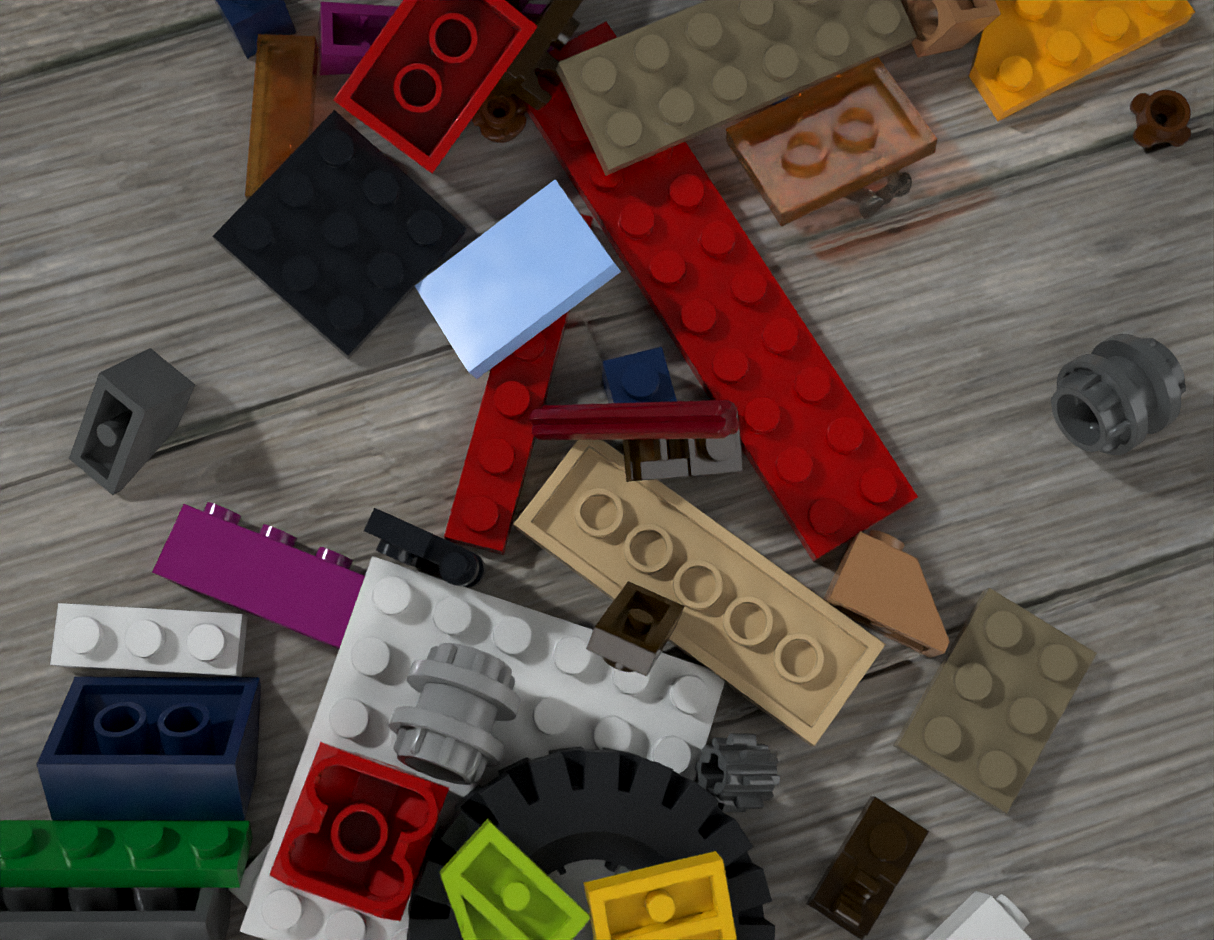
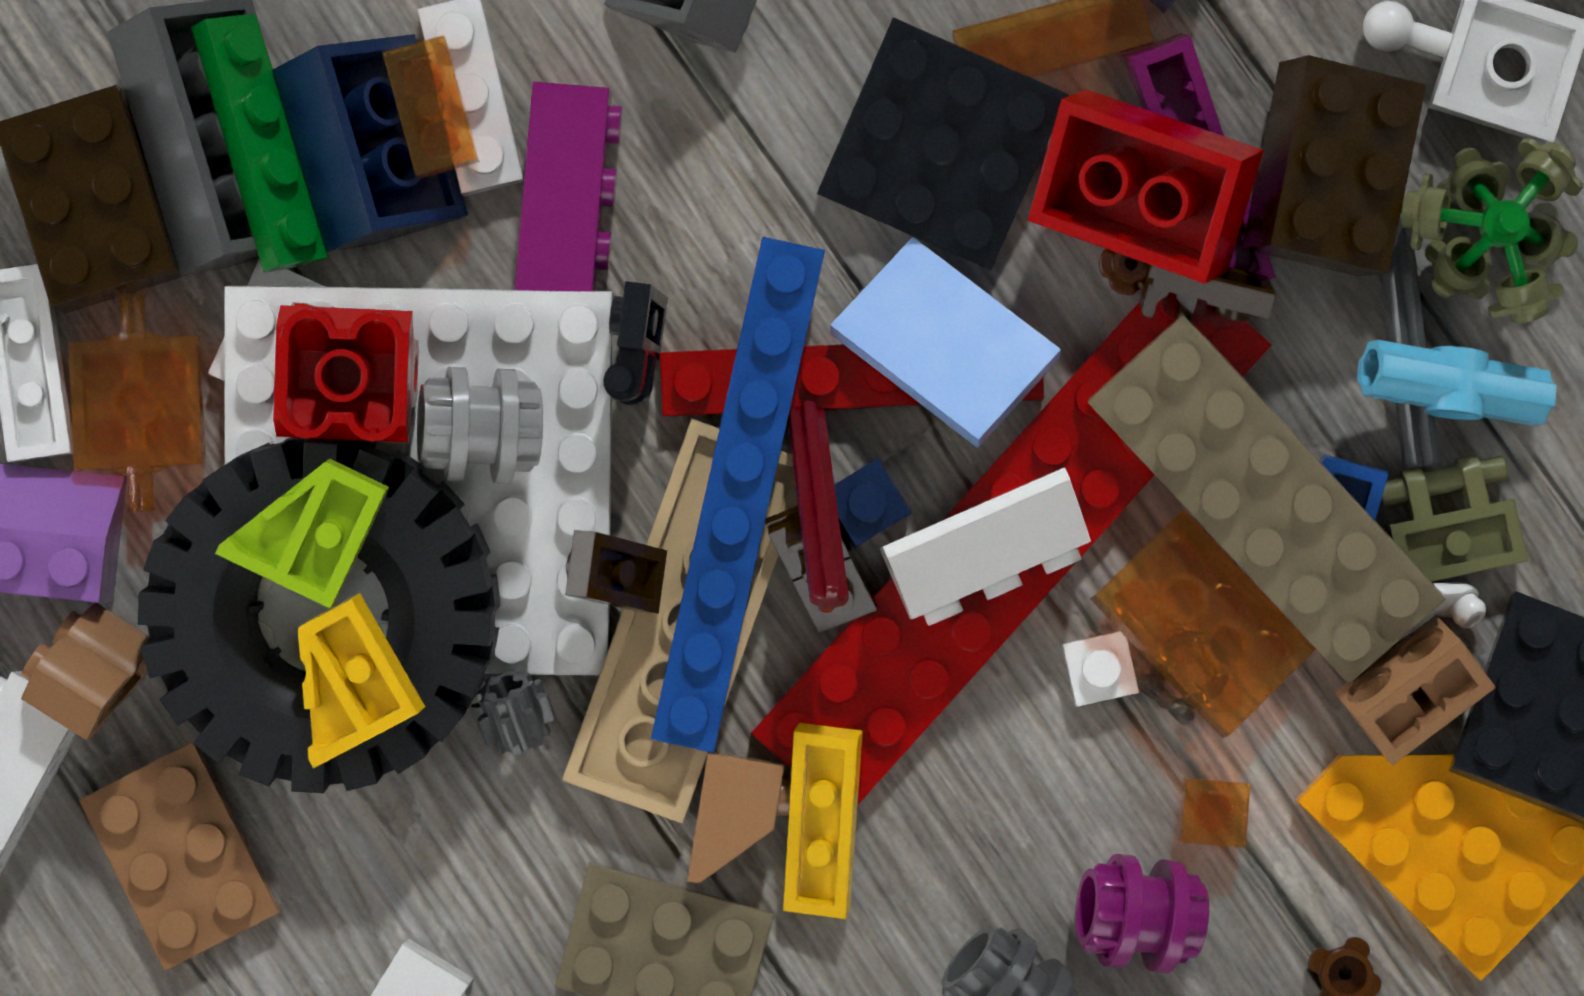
camera: 75 degrees right, 10 degrees up
(141, 675) = (431, 107): none -> clear orange plate
(600, 502) = (737, 494): none -> blue plate
(711, 286) = (987, 547): none -> white slope
(842, 242) = (1099, 668): none -> white plate
(867, 867) = (463, 866): dark brown plate -> none
(917, 513) = (822, 820): none -> yellow plate
(996, 181) = (1214, 812): none -> clear orange plate
(1073, 261) = (1150, 914): none -> magenta piece

